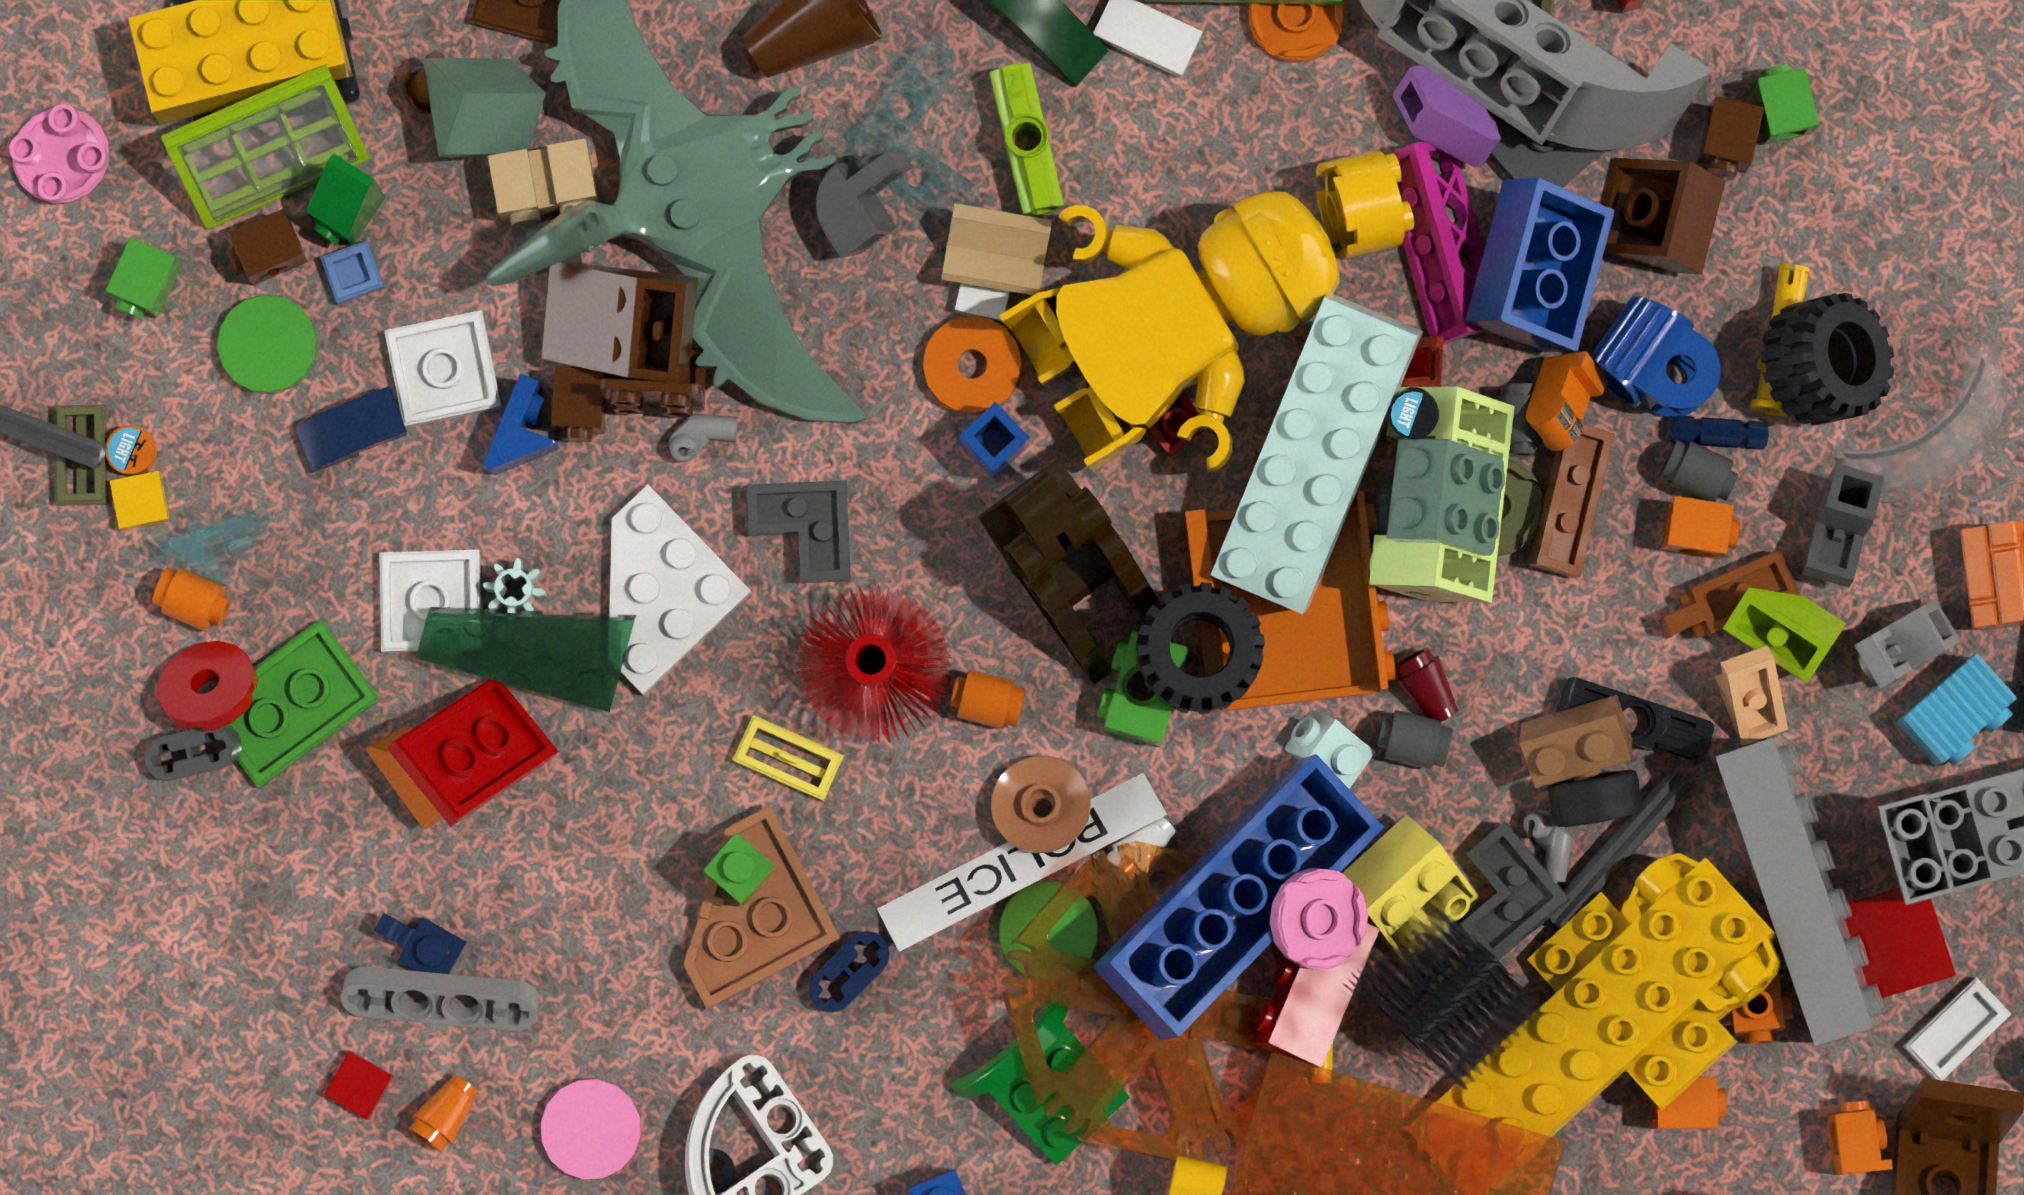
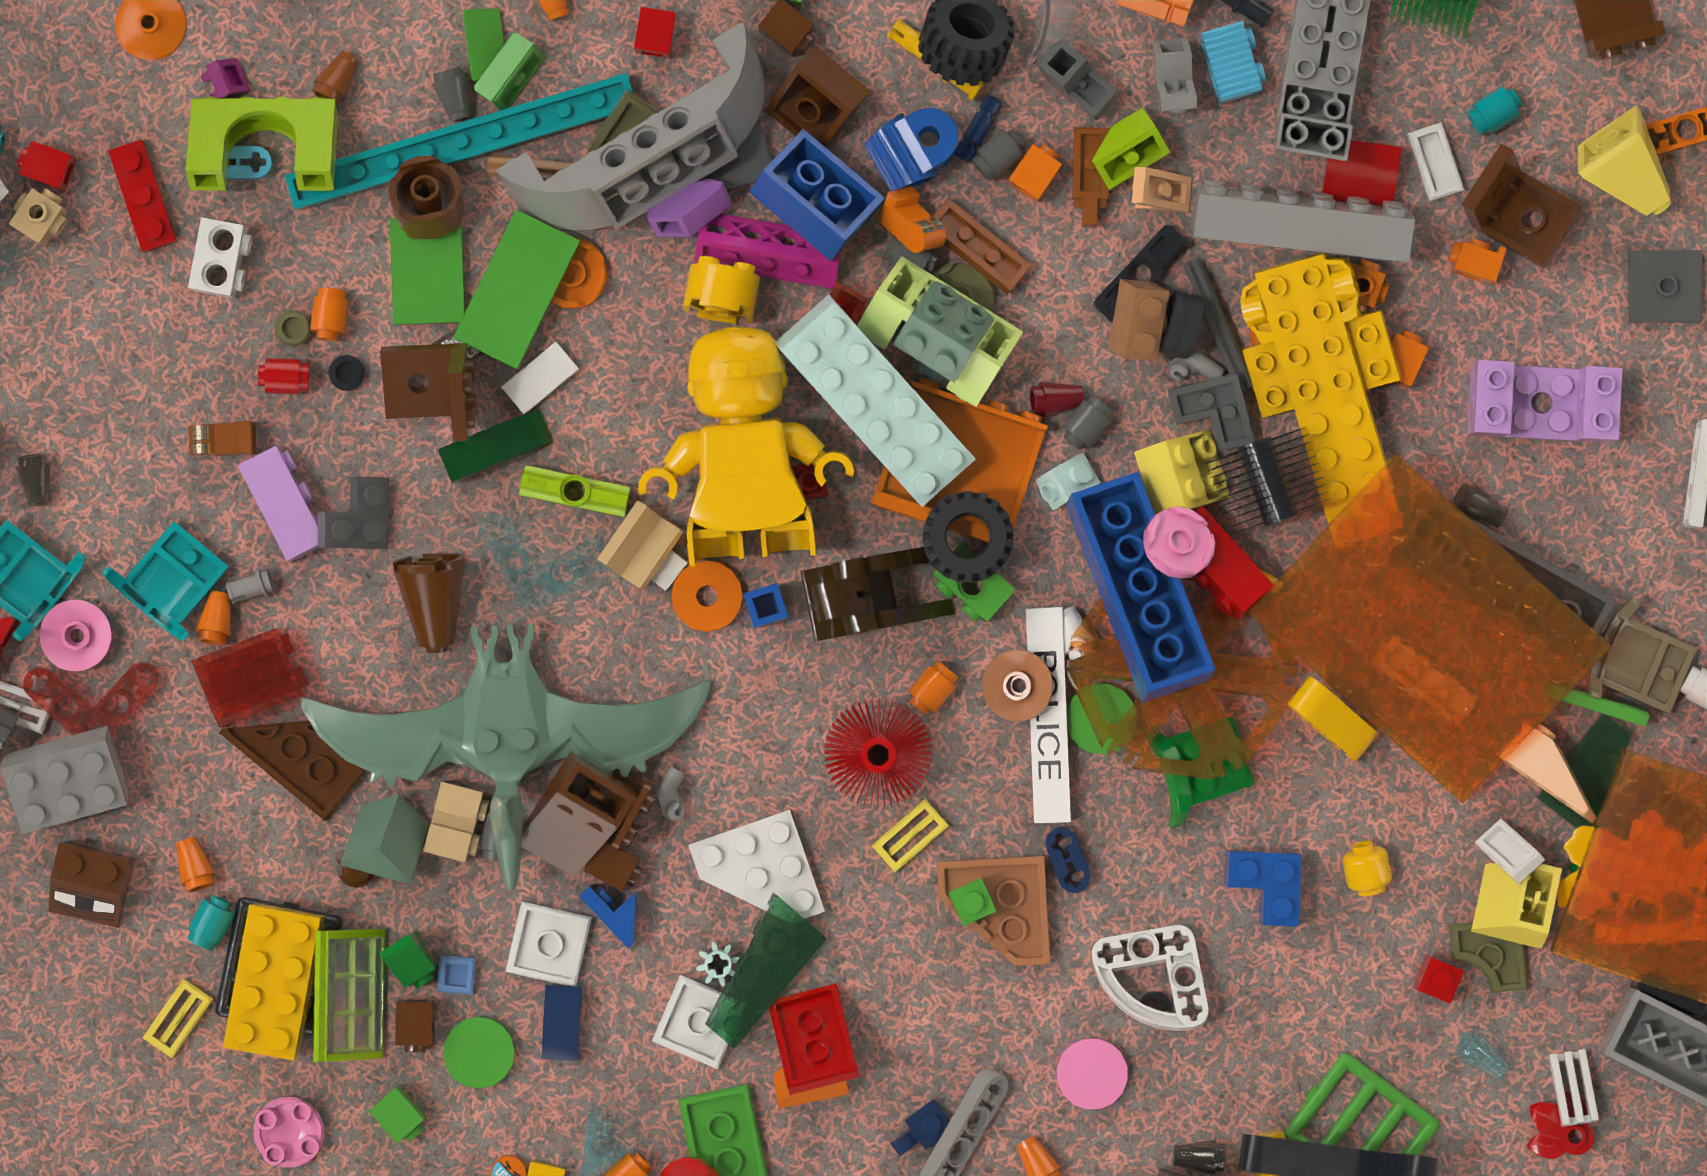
camera: 65 degrees left, 5 degrees up
(814, 512) = (762, 743): dark grey plate -> none
(849, 203) = (562, 627): dark grey brick -> none
(1413, 413) = (881, 327): tile -> none

